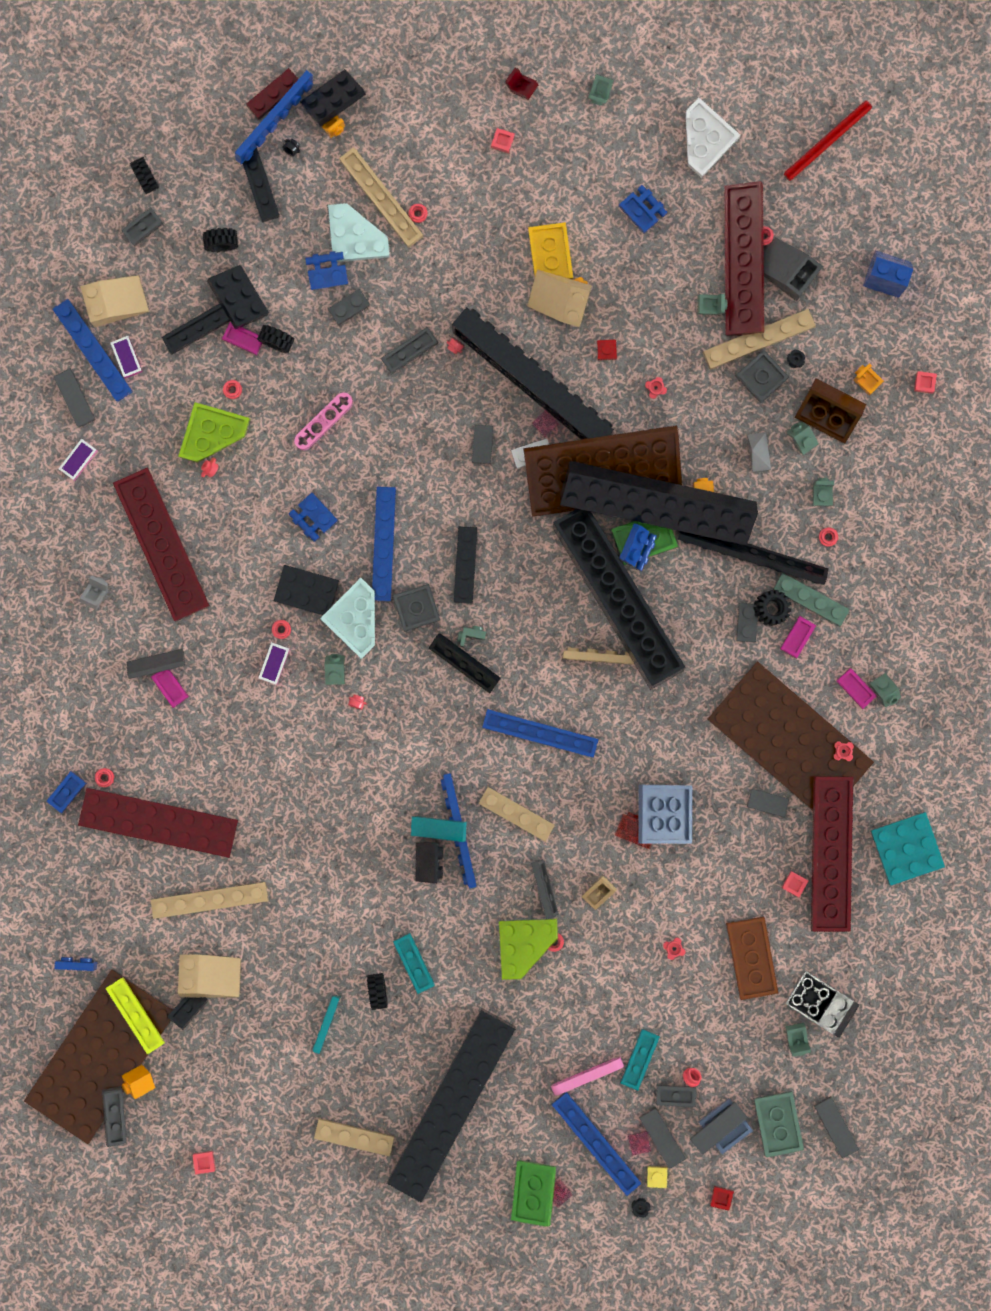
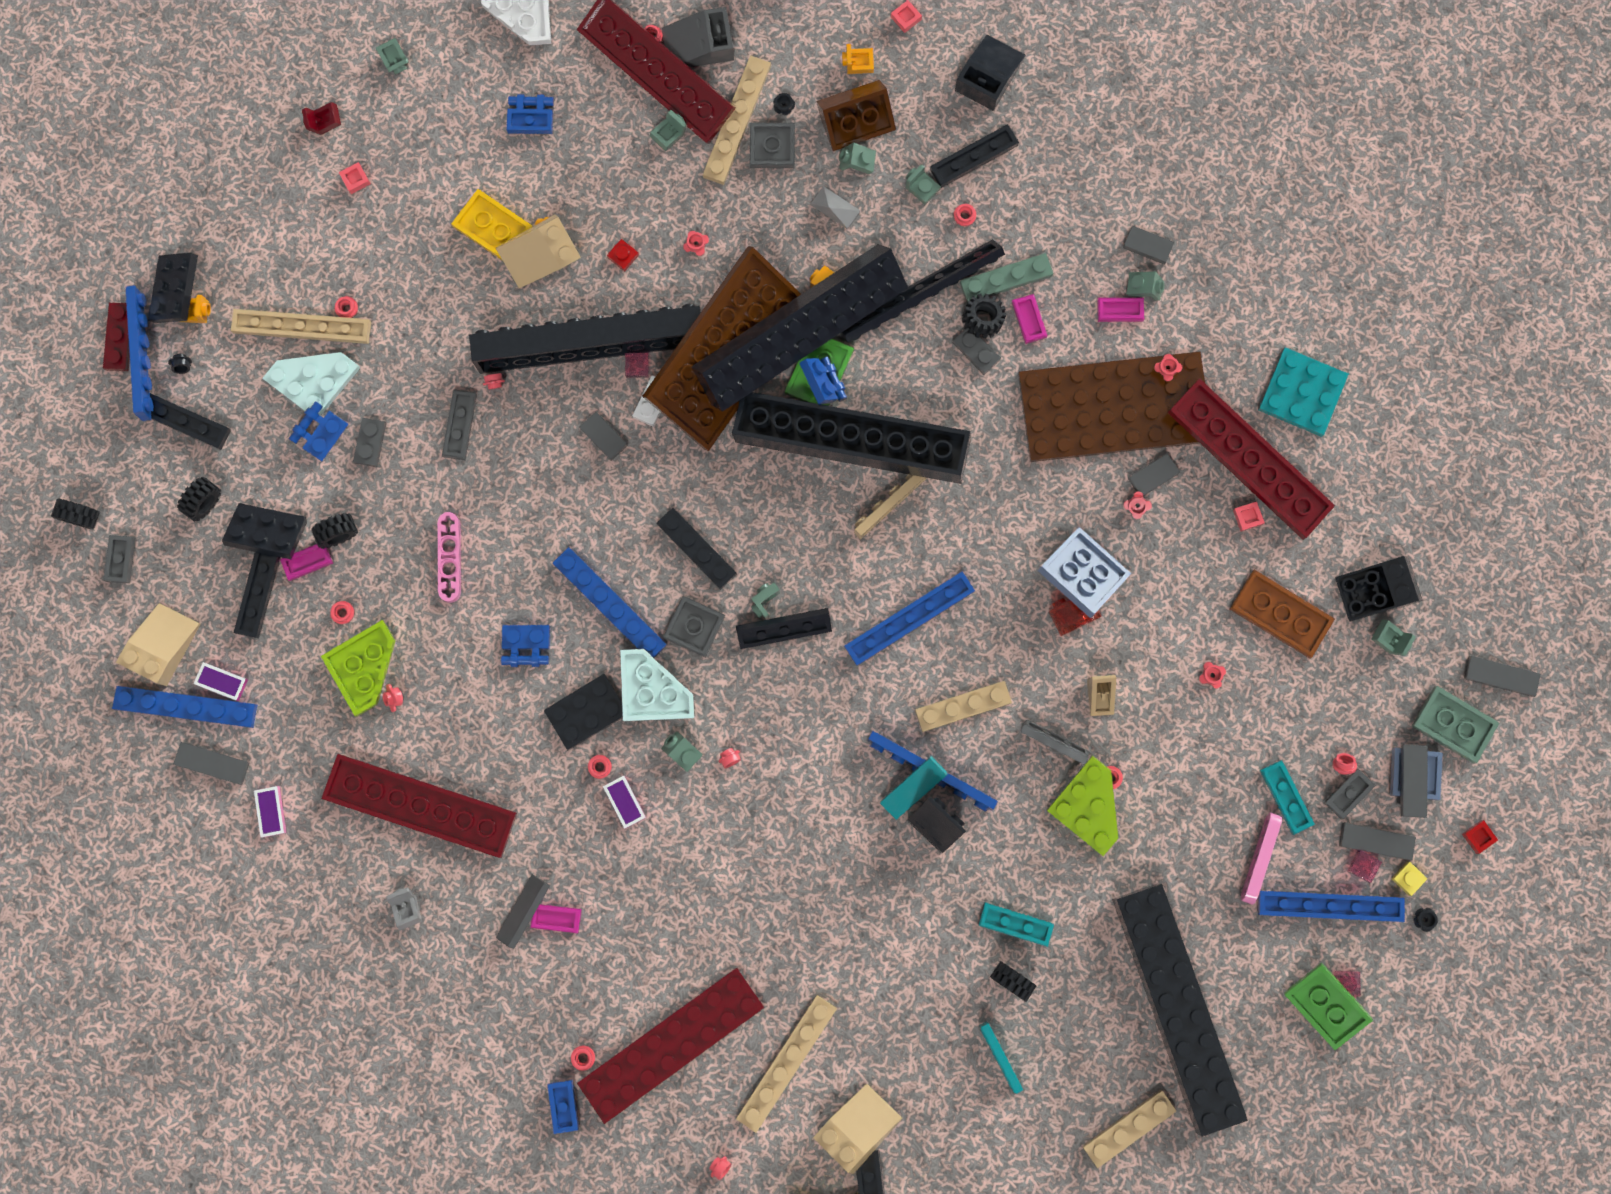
camera: 50 degrees left, 5 degrees down
(114, 916) = (720, 1167): none -> coral plate
(734, 813) = (1137, 512): none -> coral plate
(872, 508) = (974, 156): none -> black plate
(915, 668) = (1148, 245): none -> dark grey tile
(937, 468) = (989, 72): none -> black slope

